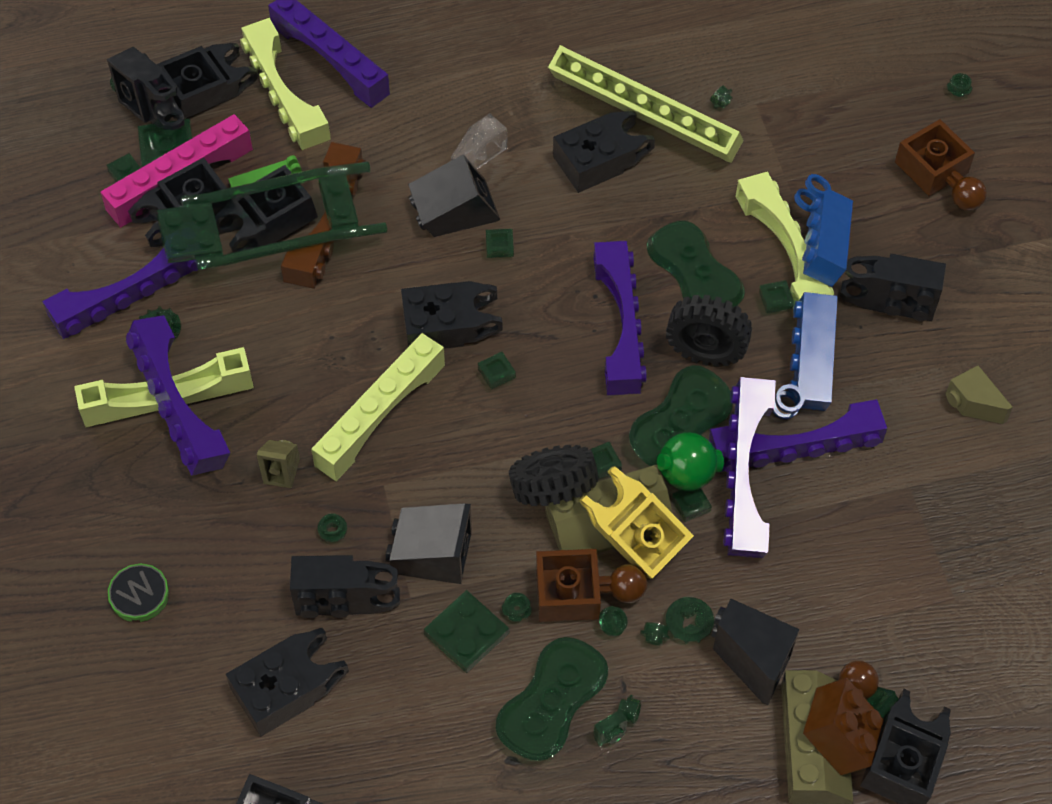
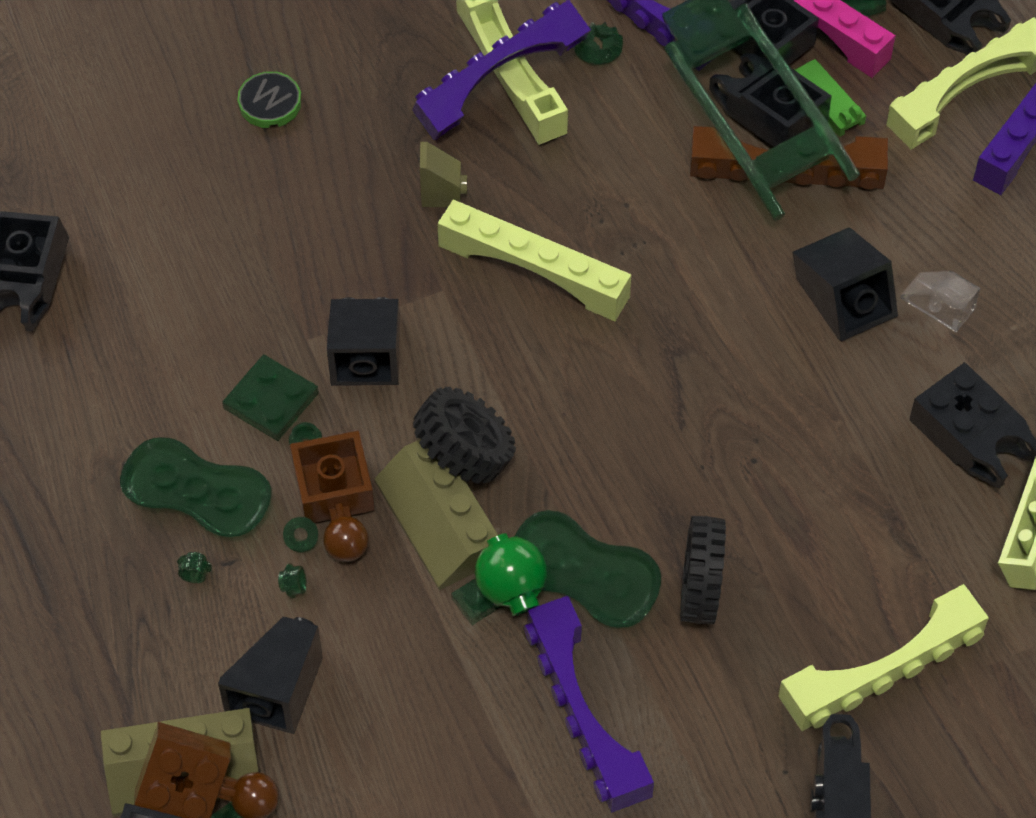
camera: 80 degrees right, 0 degrees up
(291, 674) = (179, 236): black brick -> none
(332, 520) = (374, 242): clear green plate -> none
(339, 586) = (290, 257): black brick -> none
(449, 313) = (673, 300): black brick -> none
(496, 370) = (612, 368): clear green plate -> none
(499, 243) = (798, 342): clear green plate -> none
(605, 459) = (511, 495): clear green plate -> none
(610, 729) = (165, 548): clear green plate -> none
(623, 368) = (650, 499): dark purple arch -> none
(630, 517) = (412, 526): light yellow brick -> none
(687, 256) = (808, 582): clear green plate -> none
(689, 607) = (314, 601): clear green gear -> none
(746, 531) = (439, 654): arch -> none
(776, 296) = (797, 656): clear green plate -> none
(813, 356) = (704, 701): hinge -> none
(828, 231) = (906, 698): blue hinge -> none

